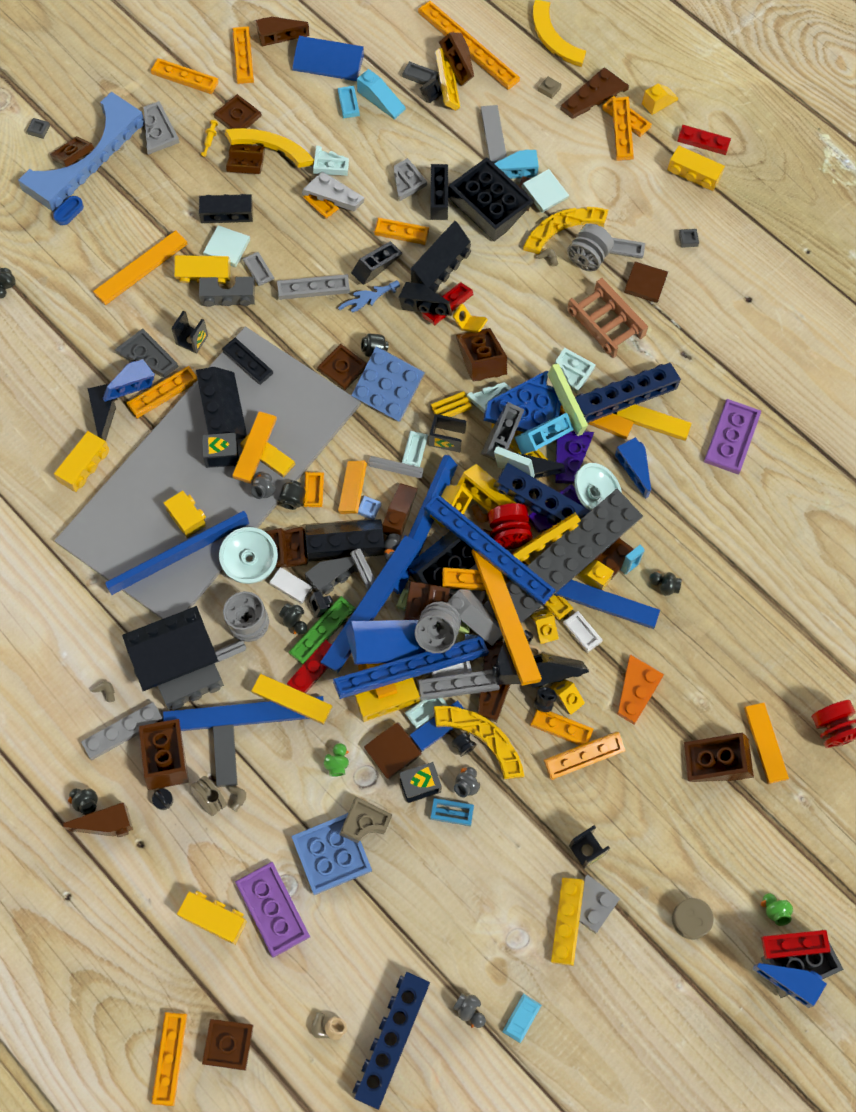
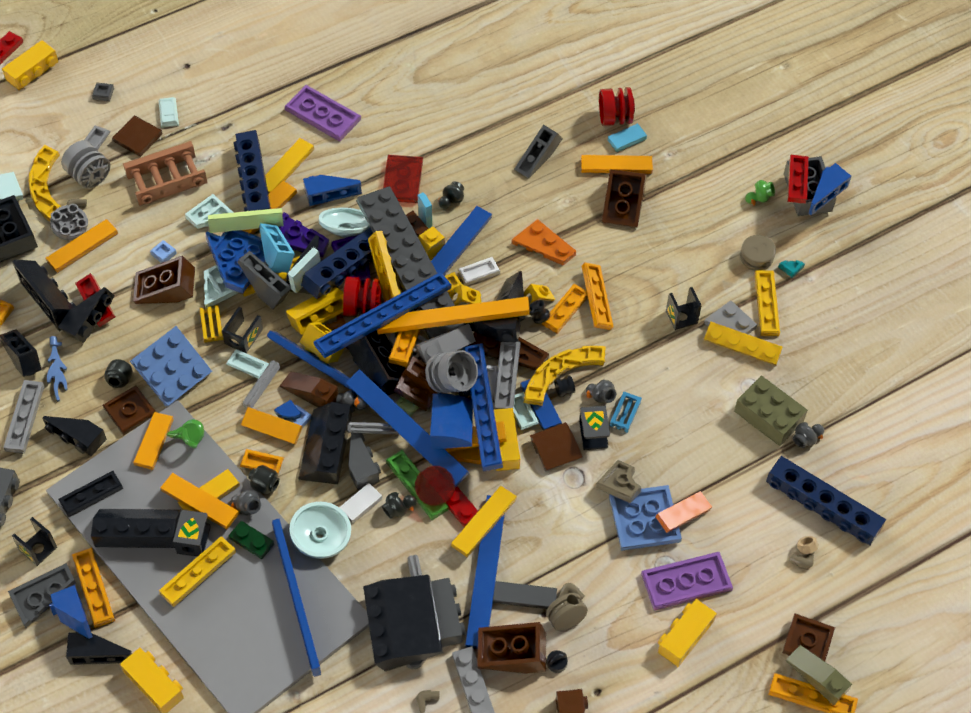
camera: 75 degrees left, 10 degrees down
(184, 1059) = (819, 674): none -> olive slope
(185, 514) = (253, 582): yellow brick -> none
(188, 466) = (197, 571): none -> yellow plate
(229, 501) = (251, 539): none -> dark green plate
(241, 608) = (380, 535): light grey wheel -> none
(290, 546) = (317, 491): reddish brown slope -> none
(304, 337) = (79, 432): none -> black slope
(311, 394) = (153, 441): none -> light orange tile
(316, 644) = (435, 486): none -> clear red tile
(319, 603) = (390, 479): black tile -> none
(327, 422) = (190, 432): none -> bright green piece
(337, 764) = (557, 495): bright green animal -> none
(343, 890) = (683, 512): none -> tile
(369, 496) = (288, 410): none -> blue tile
(469, 323) = (125, 284): yellow bracket -> none
(487, 963) = (770, 410): none -> olive brick
(506, 275) = (81, 245): none -> light orange tile
(519, 343) = (163, 252): none -> light blue tile
(521, 1018) = (819, 399): medium azure tile -> none
(526, 256) = (68, 222): none -> light grey tile
(630, 940) = (767, 303): none -> yellow tile
(674, 531) = (404, 177): none -> clear red tile
(684, 300) = (168, 112): none -> light aqua tile
(687, 961) = (791, 267): none -> teal tile
(752, 656) = (538, 151): none -> dark grey slope
(807, 747) = (627, 137): none -> medium azure tile

